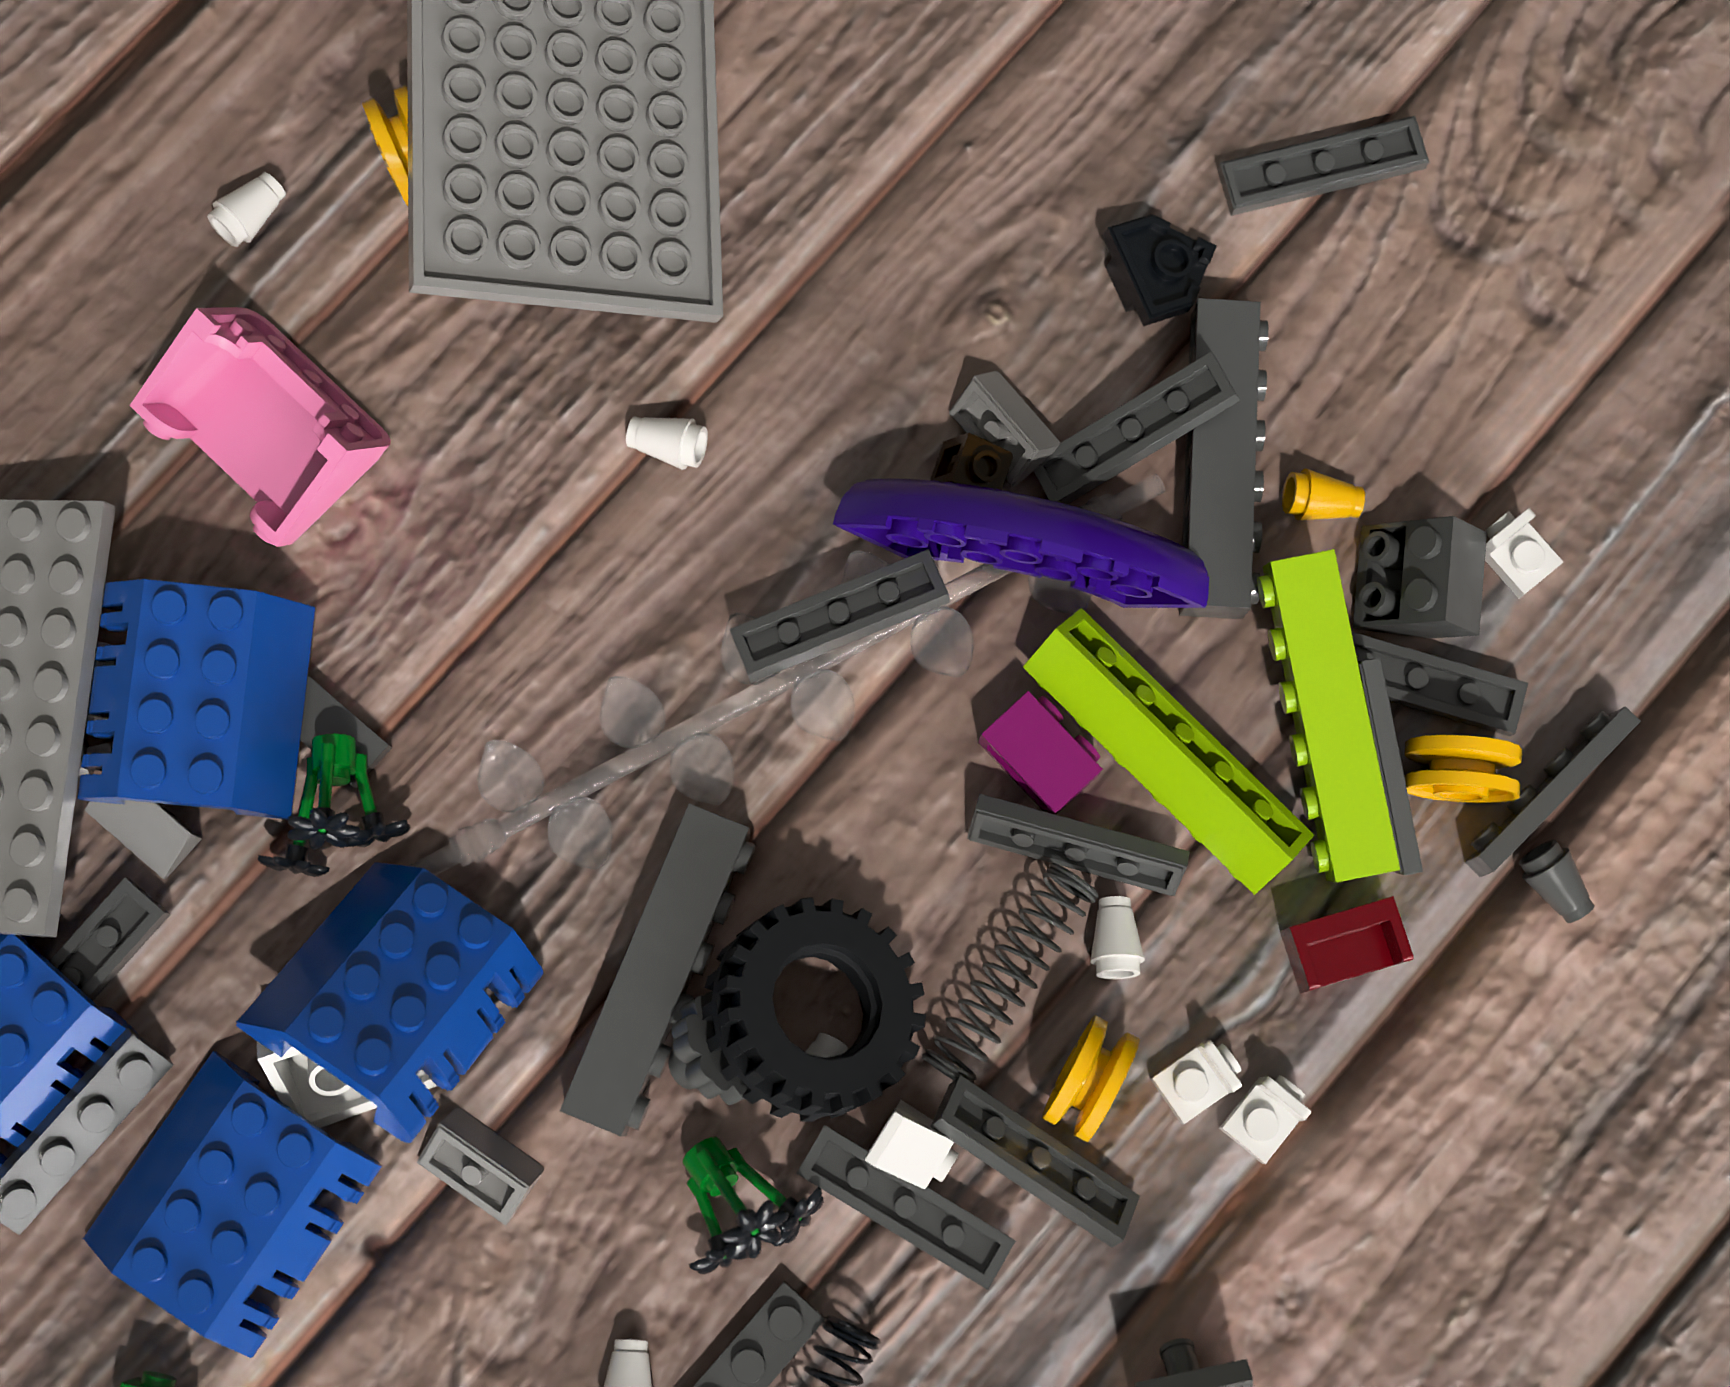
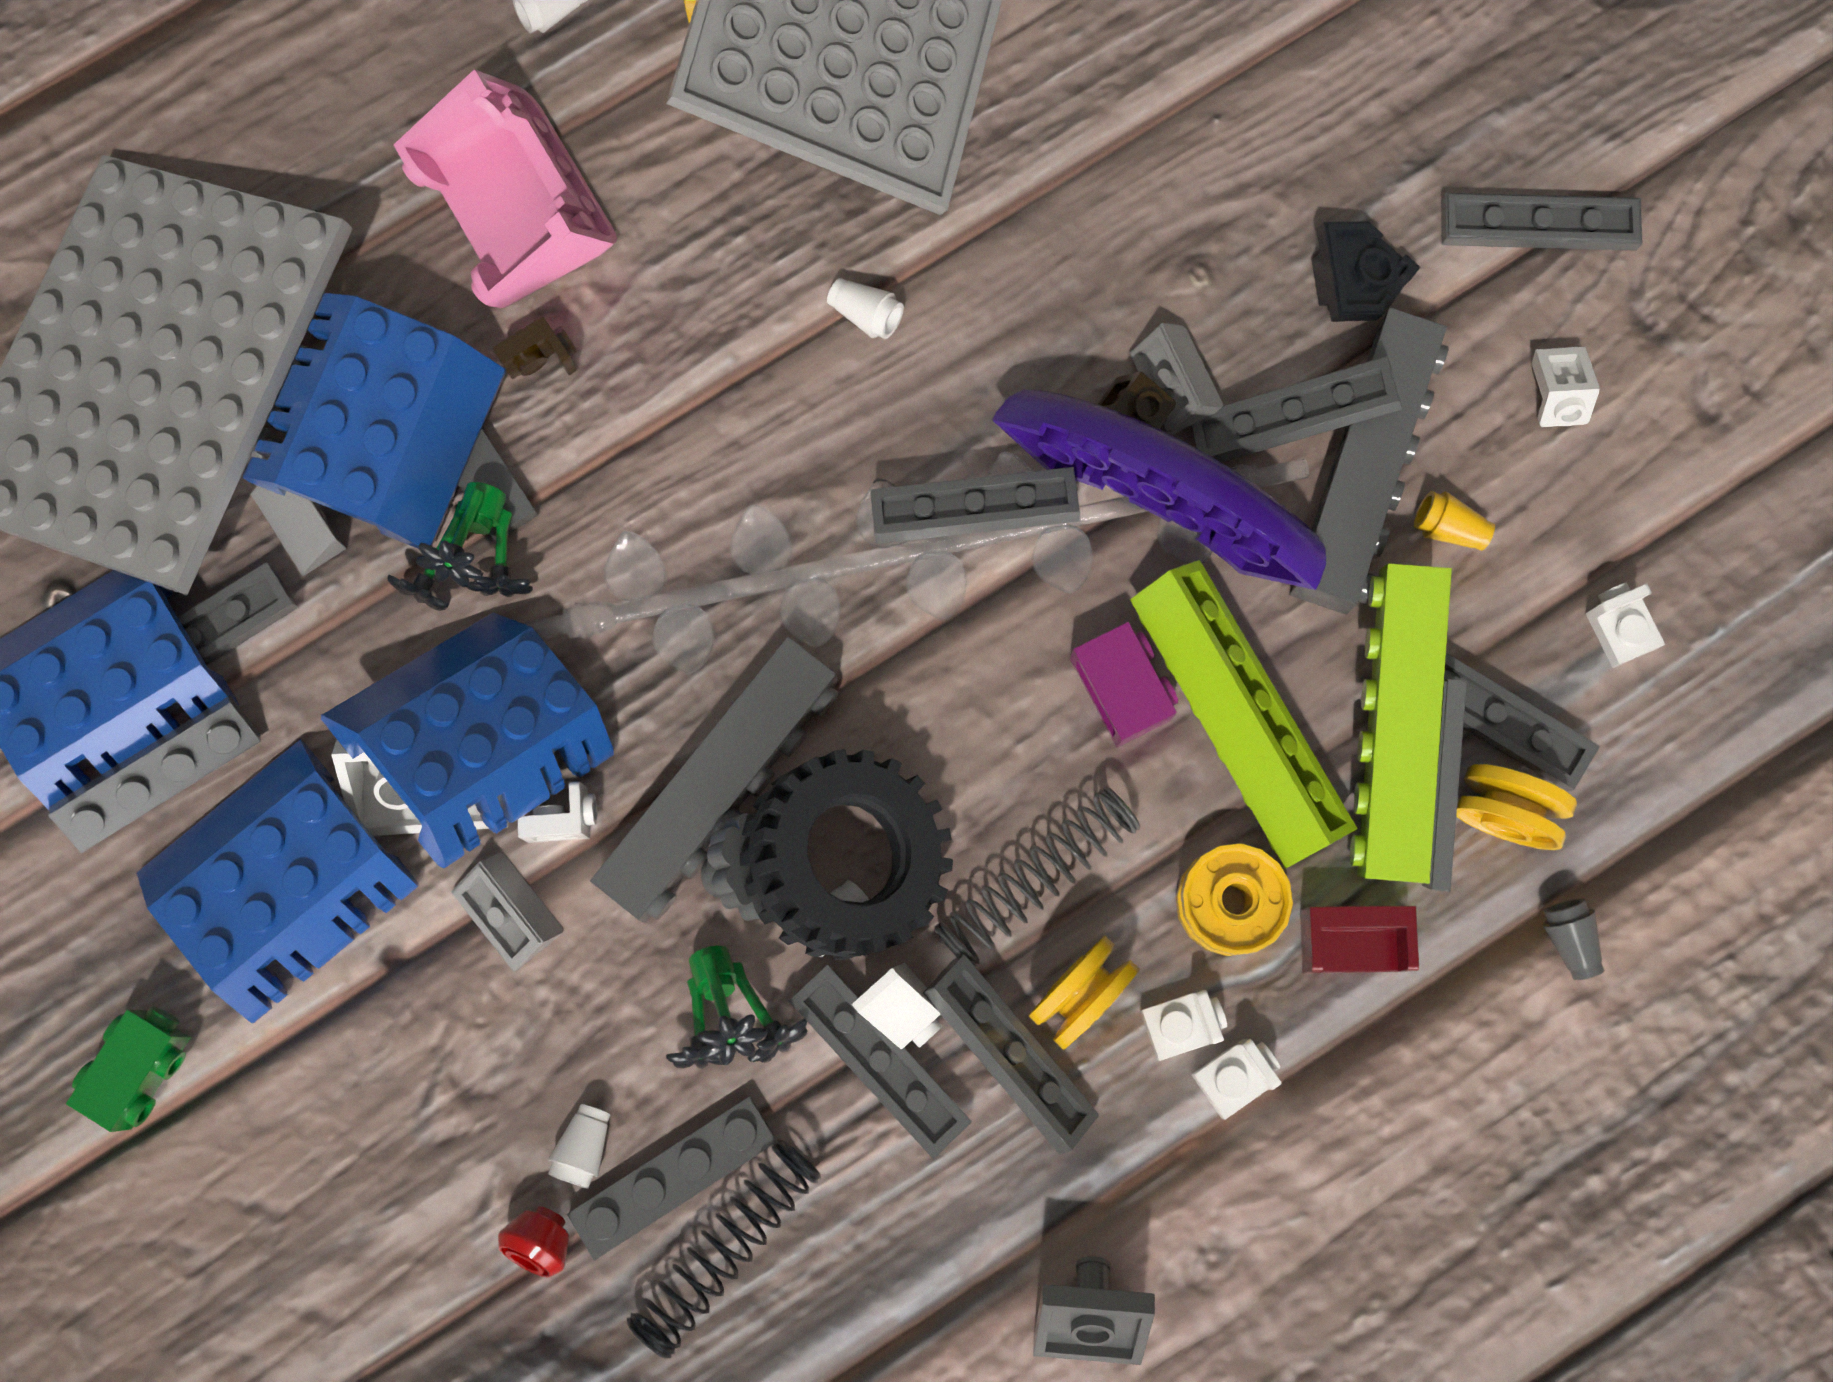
camera: 20 degrees right, 0 degrees up
(333, 578) = (528, 349): none -> dark brown bracket
(502, 1063) = (552, 824): none -> white bracket
(1078, 845) = (1134, 776): dark grey tile -> none
(1116, 940) = (1145, 874): white cone -> none
(1243, 929) = (1265, 894): none -> yellow wheel
(1393, 327) = (1565, 385): none -> white bracket
(1421, 578) = (1526, 622): dark grey slope -> none
(1565, 773) = (1611, 840): dark grey plate -> none

